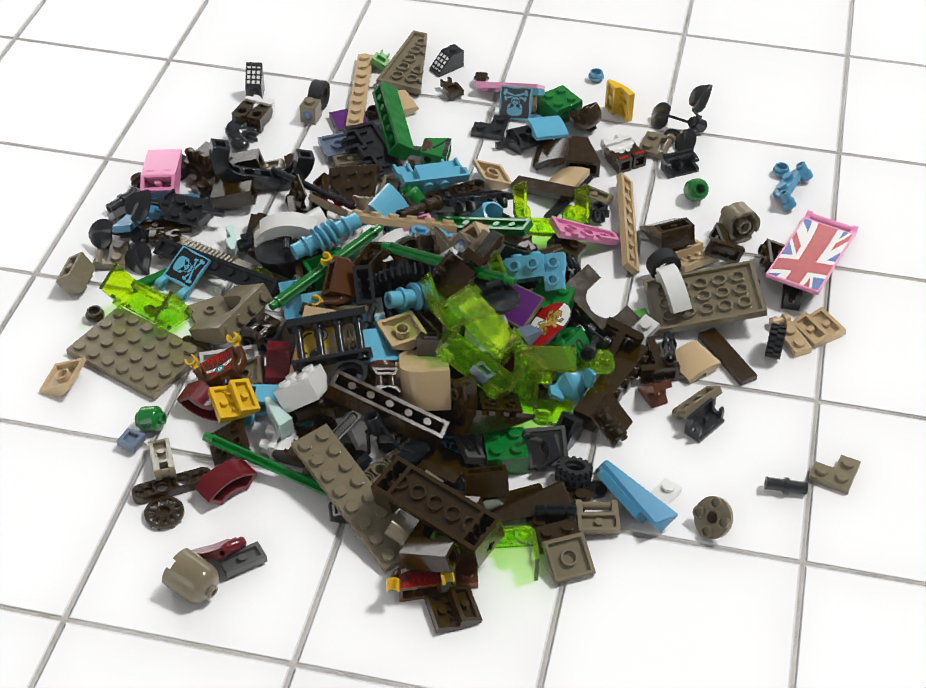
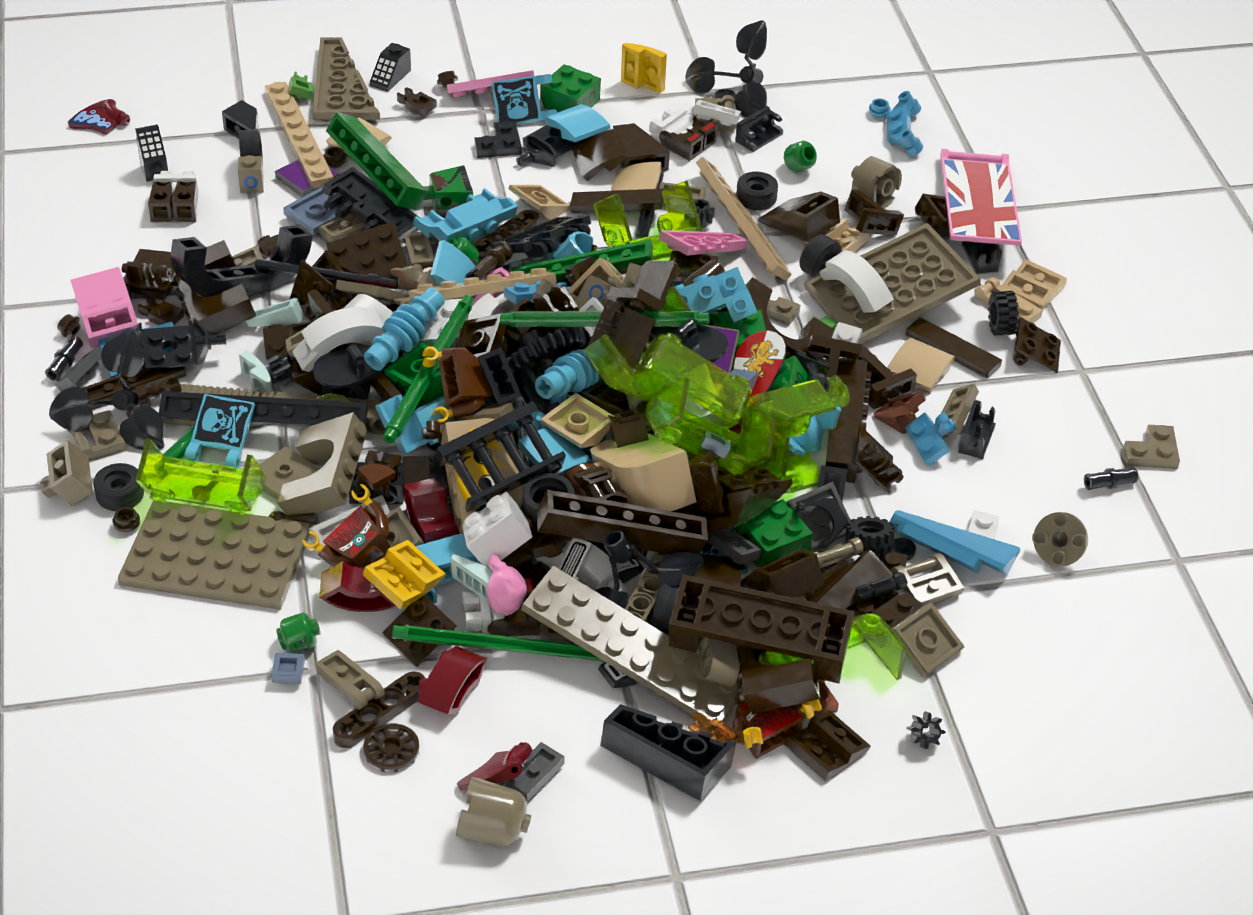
camera: 25 degrees left, 0 degrees up
(62, 377) = (138, 615): tan slope -> none
(95, 295) = (113, 476): none -> black tyre
(124, 225) = (103, 384): dark azure tile -> none
(239, 134) = (172, 226): black animal -> none
(242, 51) = (100, 117): none -> dark red arm
(254, 329) = (376, 475): none -> reddish brown tile
(269, 206) = (283, 313): none -> light aqua slope
(288, 428) = (505, 588): none -> bright pink hat
(328, 72) = (240, 117): none -> black slope
(336, 576) = (667, 751): none -> black wedge
(377, 575) = (717, 728): none -> clear orange plate
(523, 615) = (925, 738): none -> black gear
(531, 478) = (840, 552): none -> dark tan plate
(586, 118) = (615, 98): dark brown cylinder -> none
(596, 75) = (589, 43): dark azure plate -> none
(615, 295) = (783, 310): none -> dark tan plate
(647, 141) = (708, 110): none -> white plate
(650, 206) = (757, 190): none -> black tyre
(663, 413) = (928, 436): none -> dark azure plate
(665, 346) = (886, 353): black pin -> none
(790, 372) = (1036, 345): none -> dark brown hinge

